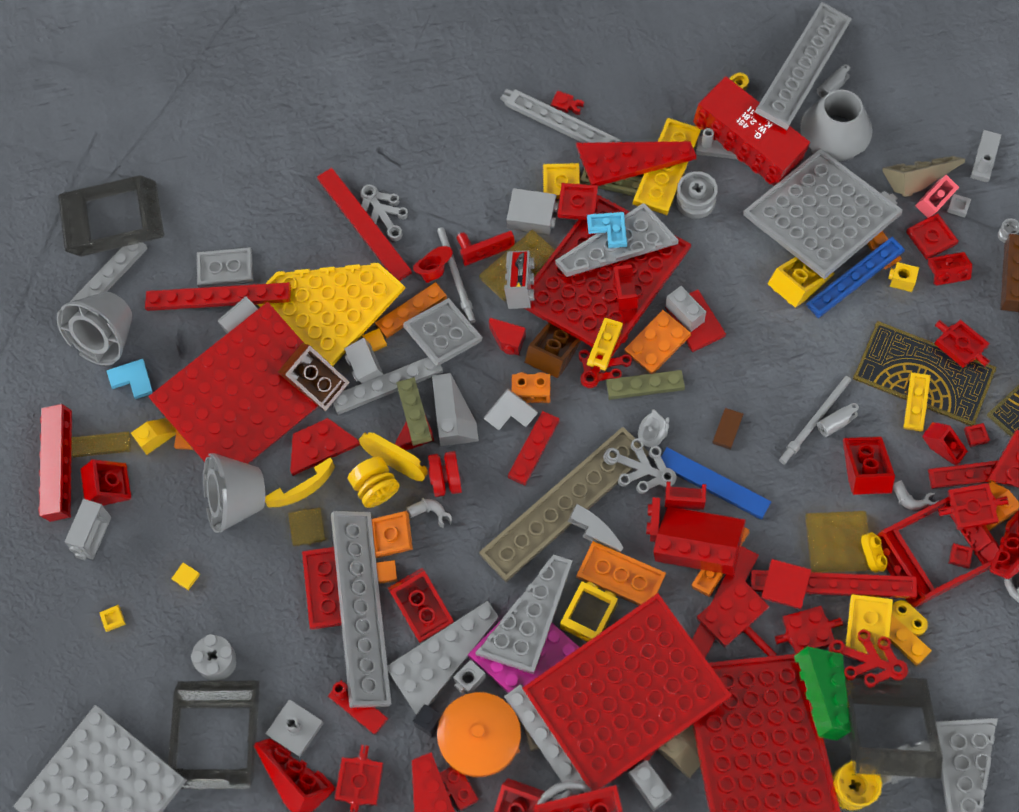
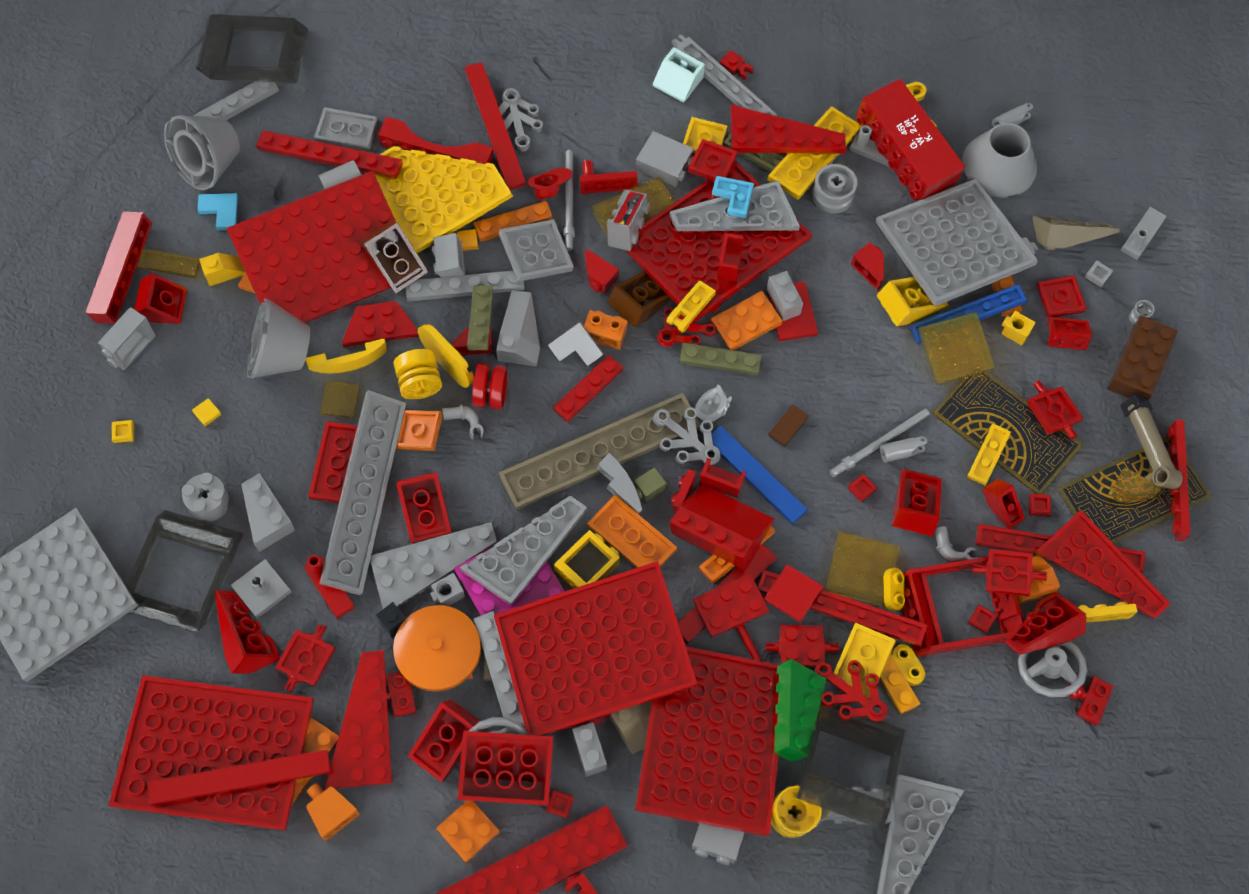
camera: 10 degrees right, 0 degrees up
(275, 655) = (265, 514): none -> light grey wedge
(276, 259) = (397, 134): none -> red arch
(386, 571) = (402, 465): orange tile -> none
(518, 128) = (679, 75): none -> light aqua slope
(622, 522) = (649, 485): none -> olive brick
(752, 256) = (870, 264): none -> red slope
(803, 66) = (984, 91): light grey plate -> none
(813, 466) = (862, 488): none -> red tile
(856, 312) = (956, 348): none -> clear yellow plate
(937, 196) = (1078, 257): coral brick -> none

